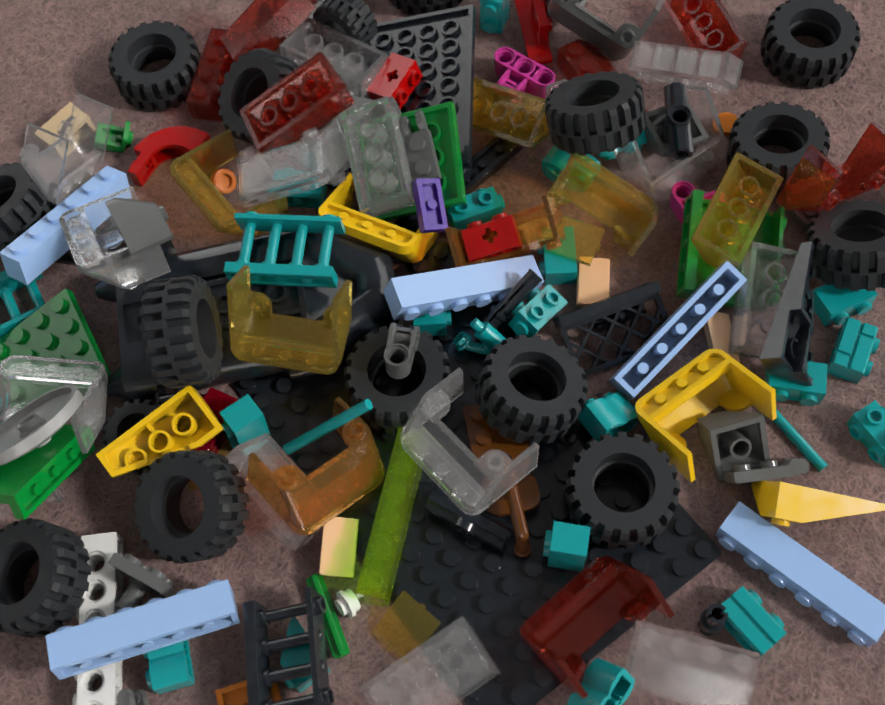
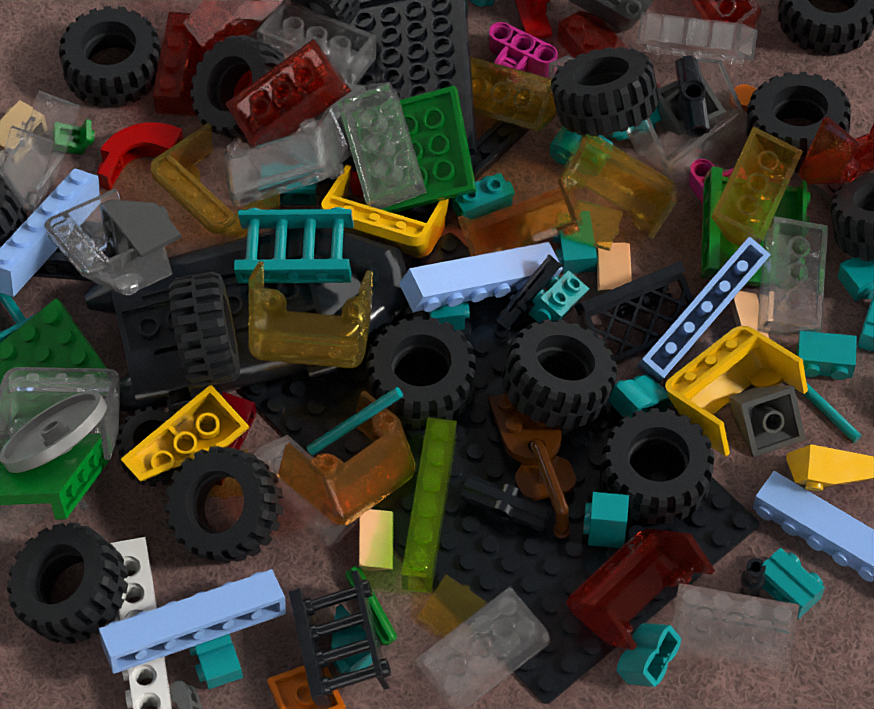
camera: 10 degrees left, 5 degrees down
(141, 580) = (178, 577): dark grey plate -> none
(224, 180) = (205, 176): orange tile -> none
(243, 421) = (266, 422): teal brick -> none
(347, 603) = (390, 591): white plate -> none
(395, 79) = (386, 62): red brick -> none
(402, 345) = (424, 336): dark grey piece -> none
(420, 148) = (425, 138): dark grey hinge -> none
(429, 205) = (439, 194): dark purple plate -> none
(462, 476) = (486, 443): clear windscreen -> none
(484, 332) = (505, 322): teal plant -> none
(506, 241) = (519, 230): red brick -> none
(768, 470) = (777, 445): dark grey hinge -> none
(789, 338) = (816, 306): black wedge -> none

